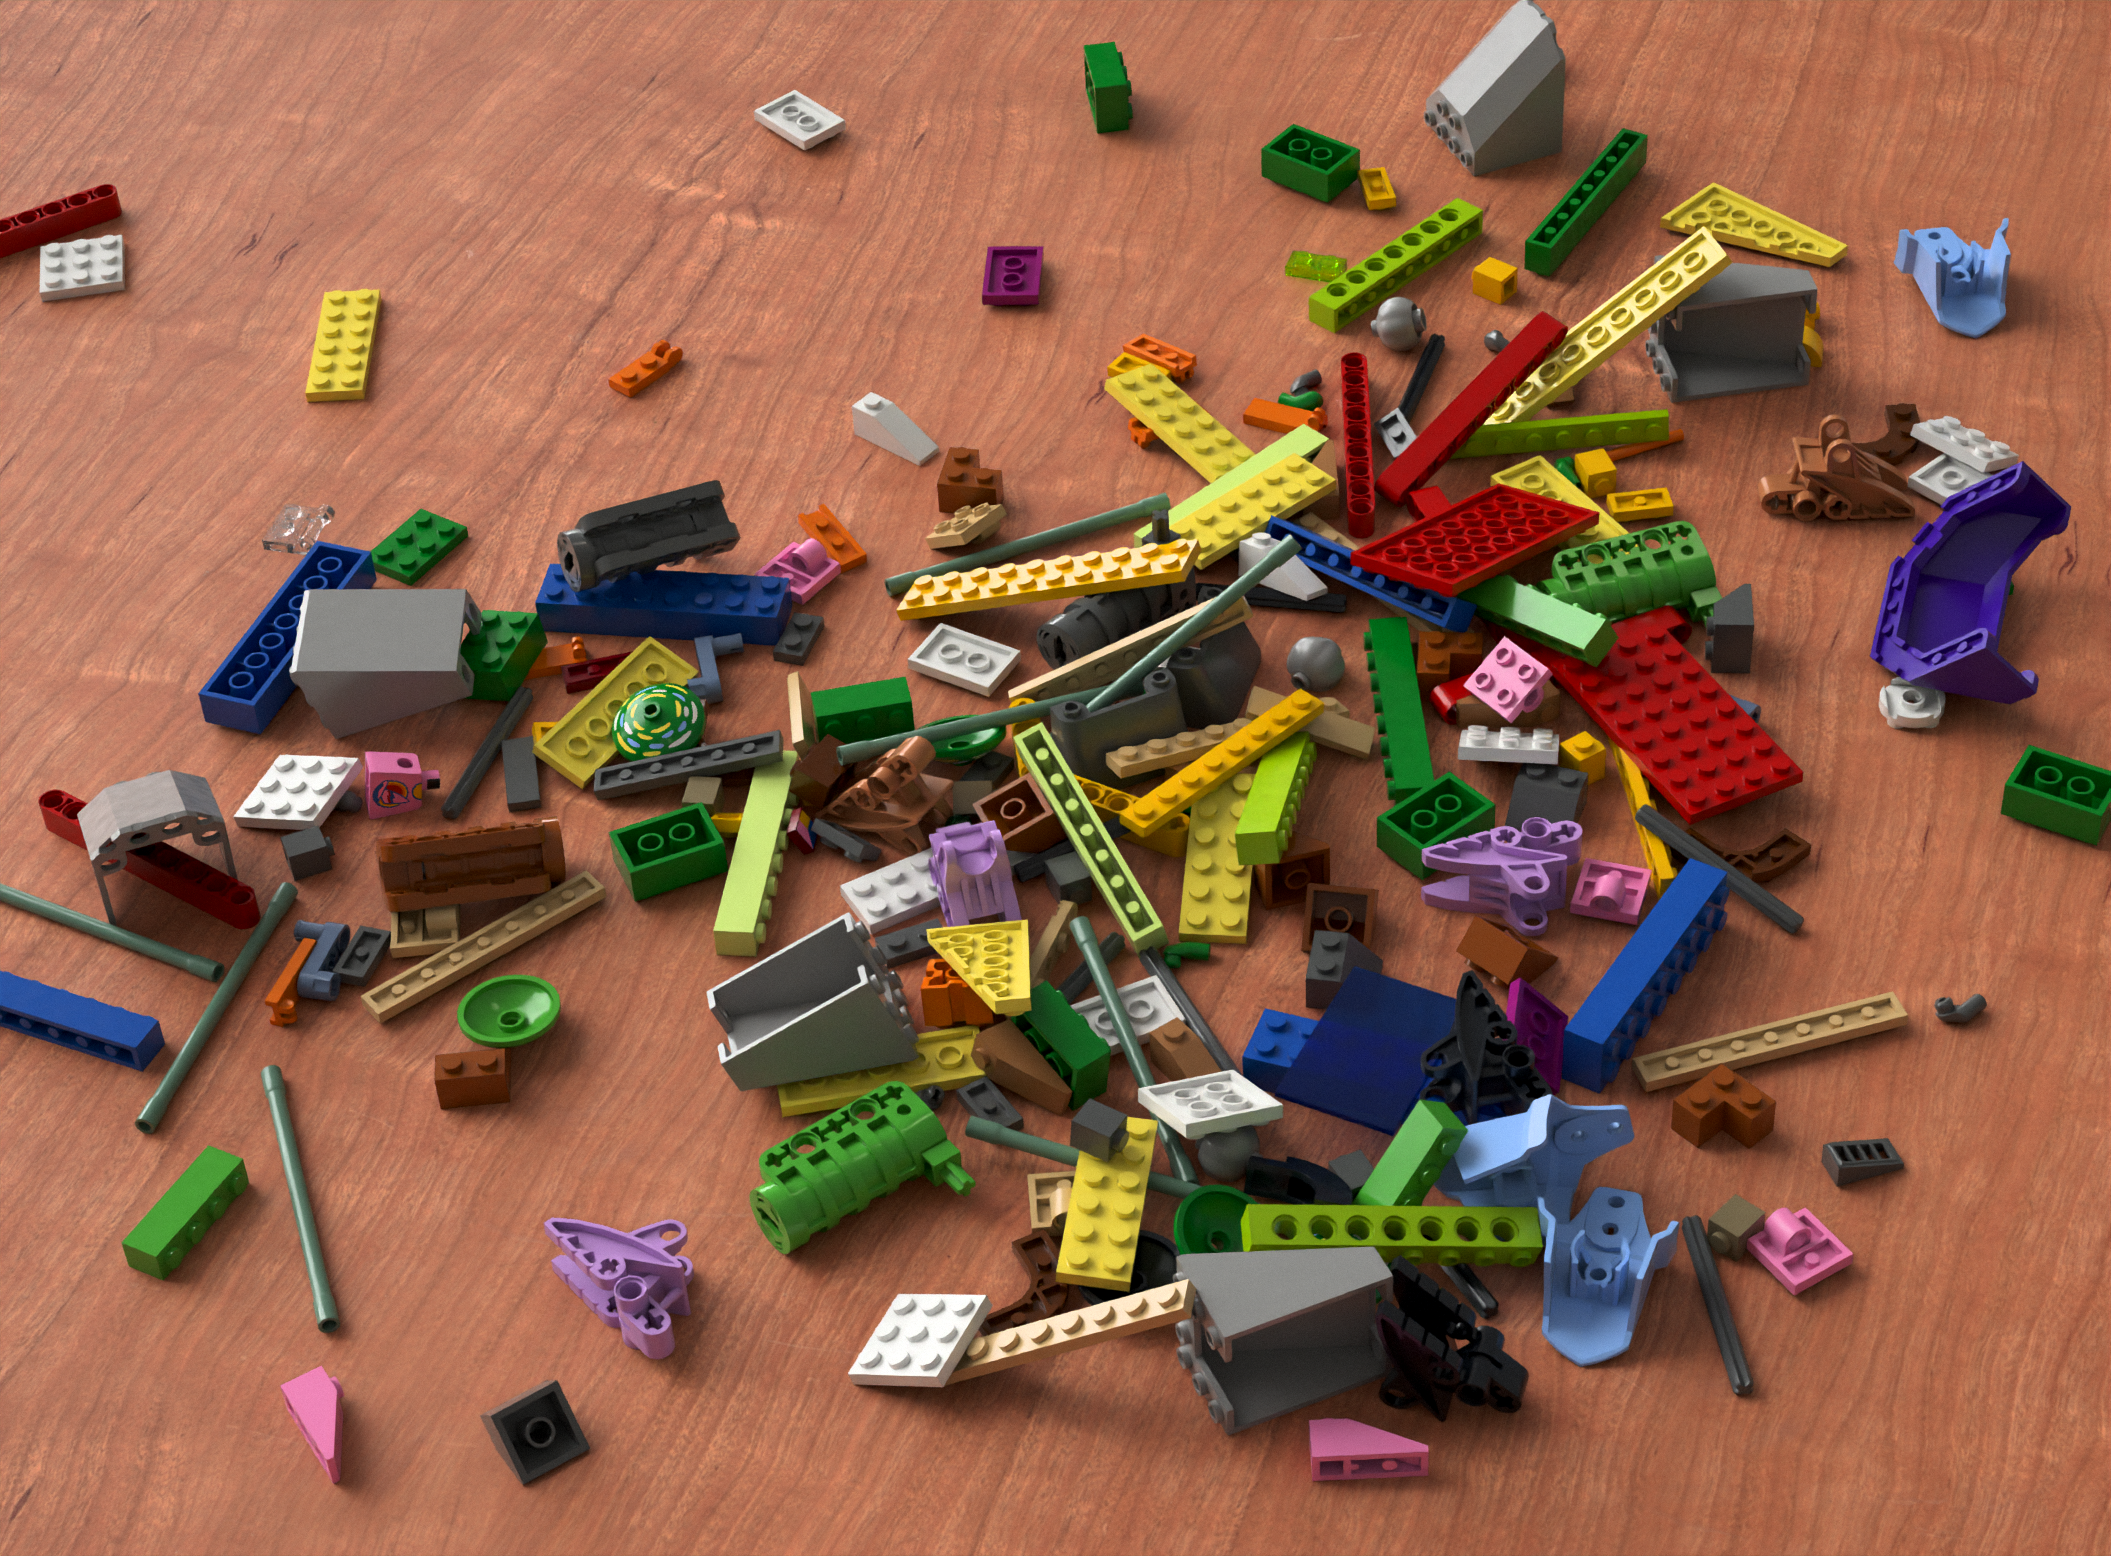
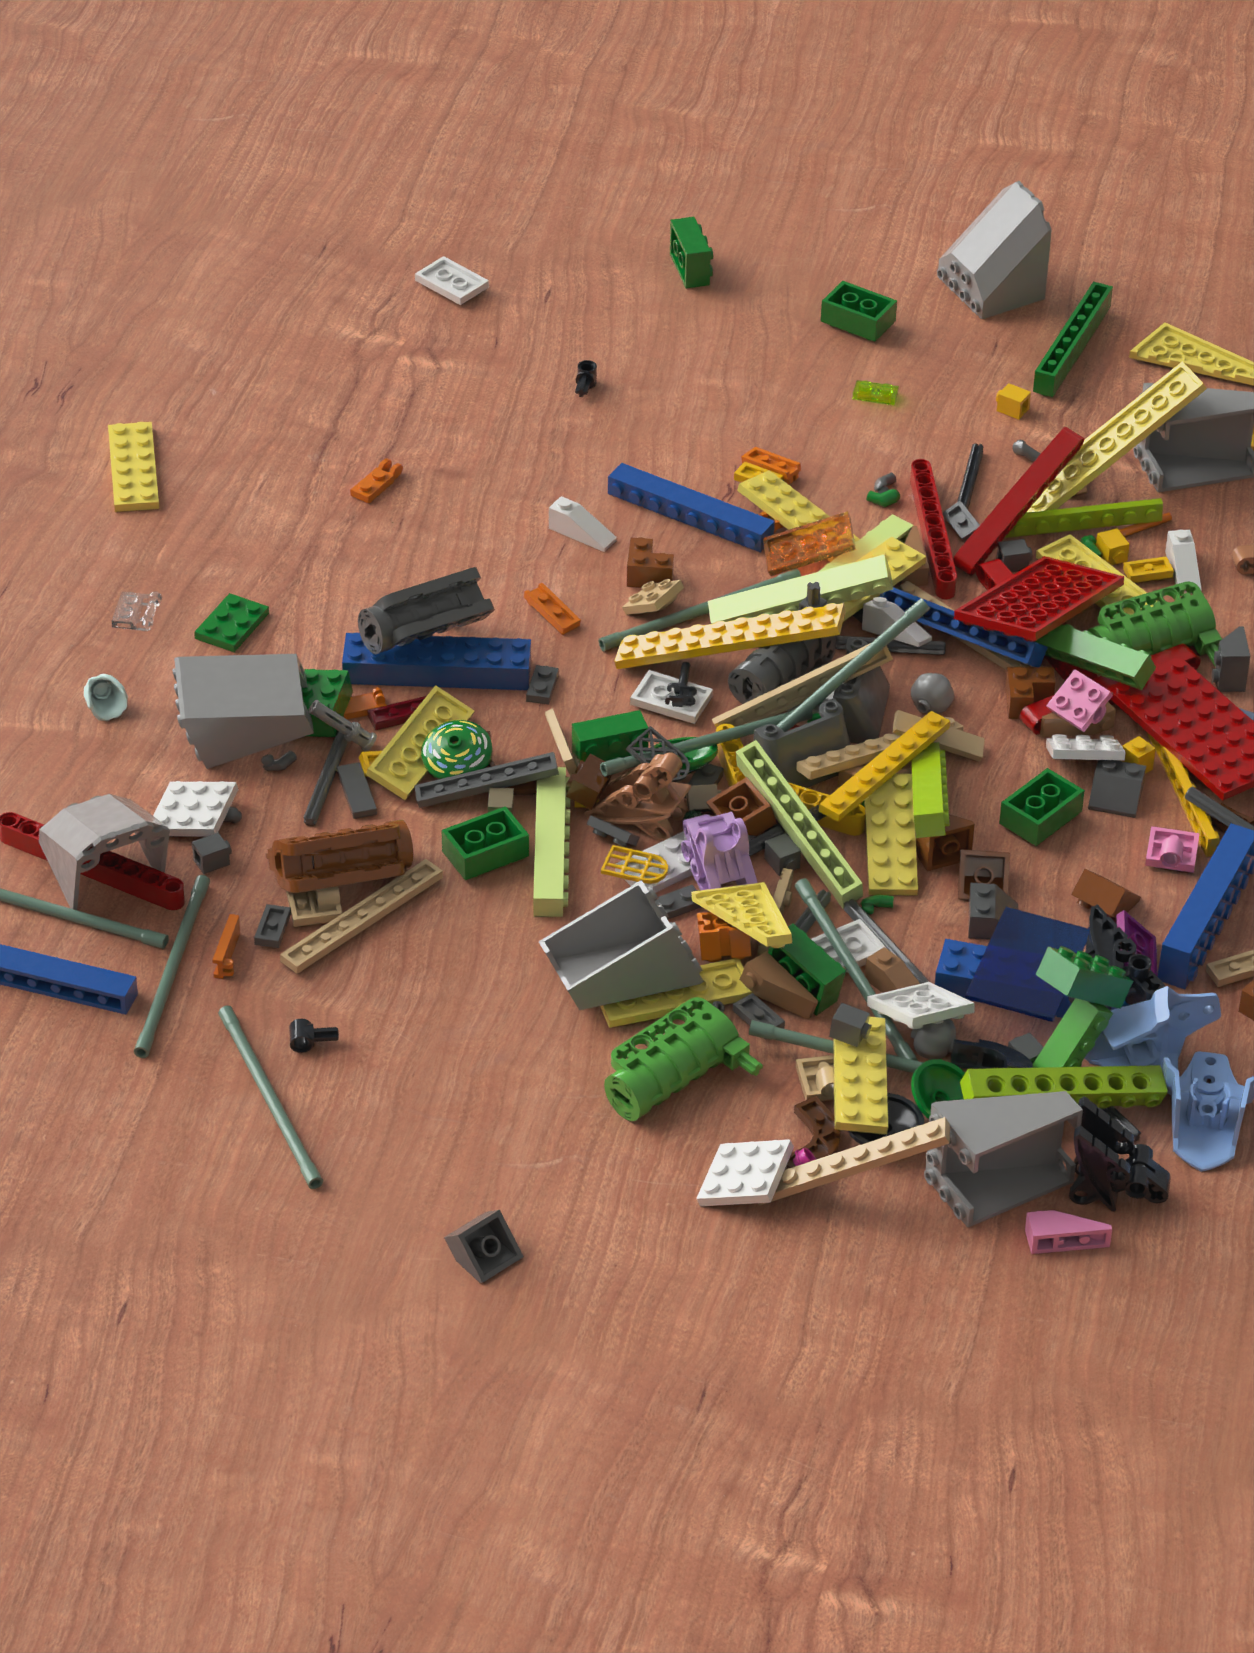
camera: 10 degrees left, 0 degrees up
(185, 1212) = (191, 1110): bright green brick -> none
(218, 635) = (105, 697): none -> light aqua hair
(256, 673) = (150, 697): blue brick -> none
(316, 976) = (242, 944): sand blue beam -> none
(319, 1416) = (323, 1240): bright pink slope -> none
(367, 1111) = (304, 1035): none -> black axle
(395, 783) = (266, 800): bright pink torso -> none
(431, 735) = (278, 764): none -> dark grey arm
(473, 1078) = (378, 1009): dark orange slope -> none
(509, 1011) = (395, 960): bright green dish -> none
(530, 690) = (351, 731): none -> light grey pin
(629, 1273) = (527, 1136): lavender piece -> none
(707, 649) = (477, 697): sand blue beam -> none
(727, 823) = (526, 820): yellow plate -> none
(800, 831) = (579, 825): tile -> none
(805, 567) = (538, 628): bright pink plate -> none
(873, 899) = (643, 872): none -> yellow window
(878, 729) = (673, 749): none -> dark grey window
(942, 242) = (586, 377): none -> black axle
(980, 653) = (685, 692): none -> black piece
(1004, 1320) = (803, 1156): none -> dark pink plate
(1013, 275) = (646, 403): magenta plate -> none
(1043, 410) = (690, 507): none -> blue brick
(1184, 460) = (809, 543): none -> clear orange plate
(1193, 516) = (837, 586): none -> yellowish green brick
(1282, 417) = (872, 509): orange hinge -> none
(1376, 188) = (911, 330): yellow plate -> none
(1395, 265) = (936, 390): lime brick -> none
(1399, 324) = (949, 436): light grey plant -> none
(1399, 707) = (999, 724): green brick -> none
(1428, 1077) = (1084, 976): none -> green brick
(1459, 480) = (1014, 554): none -> dark grey brick
(1506, 878) = (1096, 841): lavender piece -> none
(1689, 490) = (1182, 557): none -> white slope

